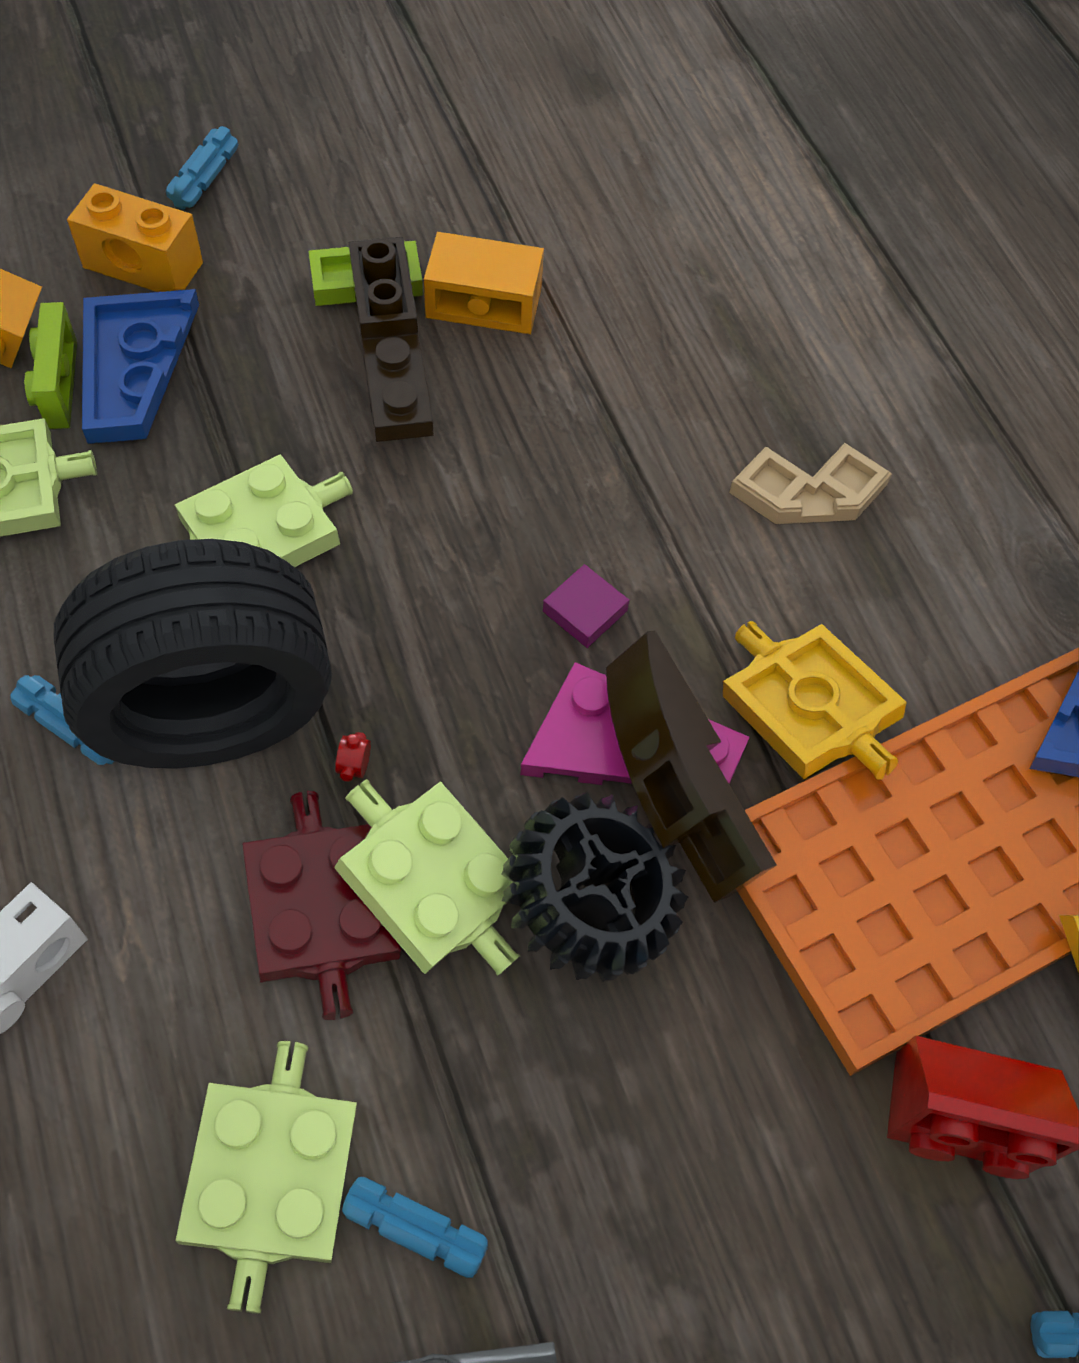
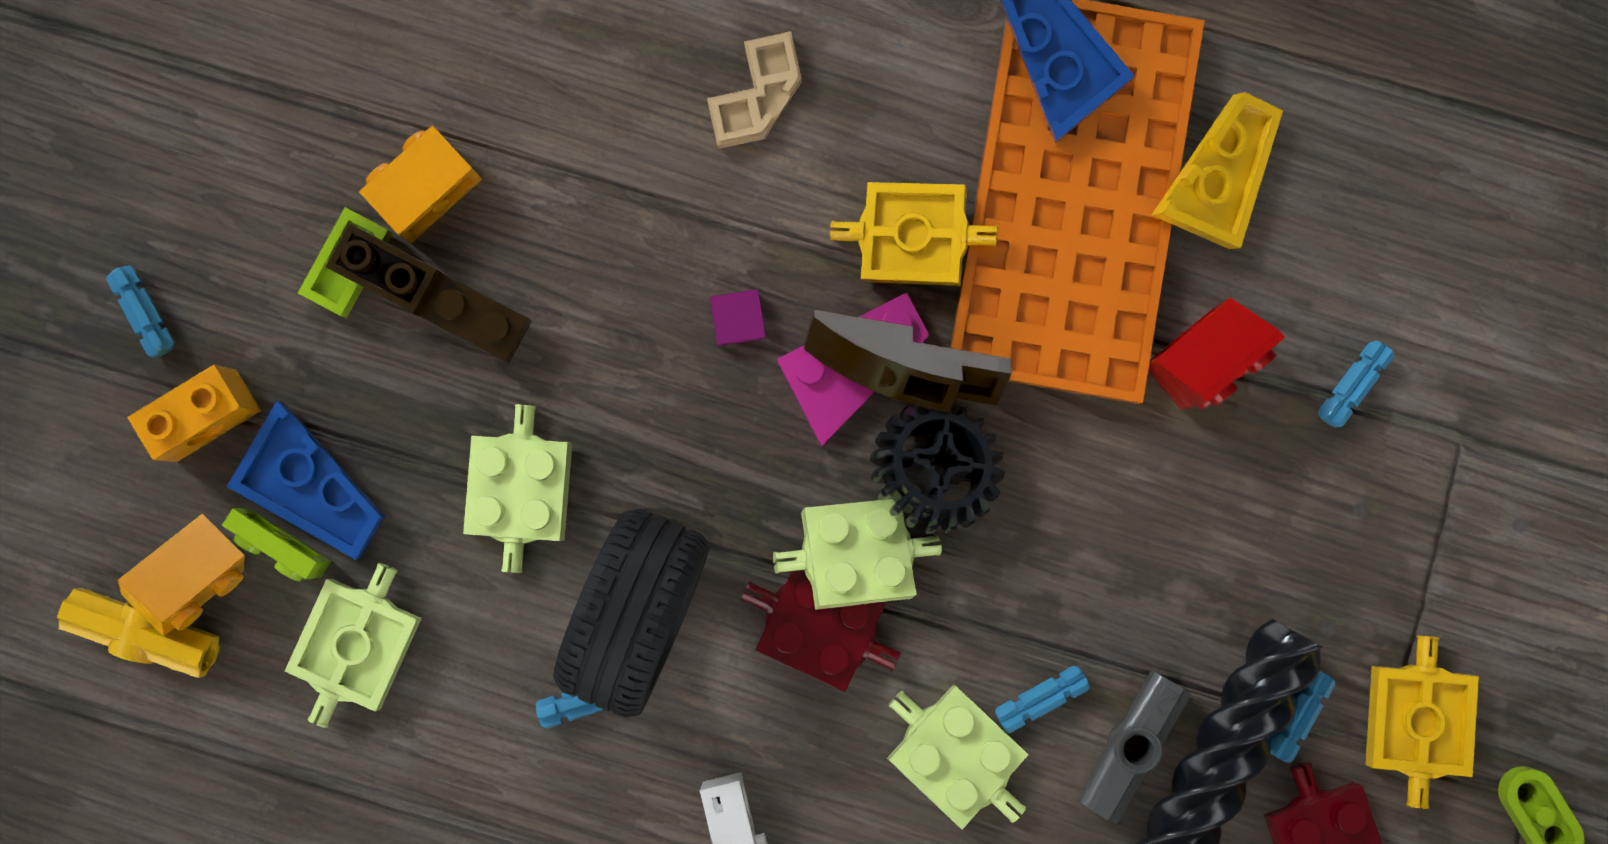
camera: 50 degrees left, 25 degrees up
(353, 756) = (739, 543): red piece -> none

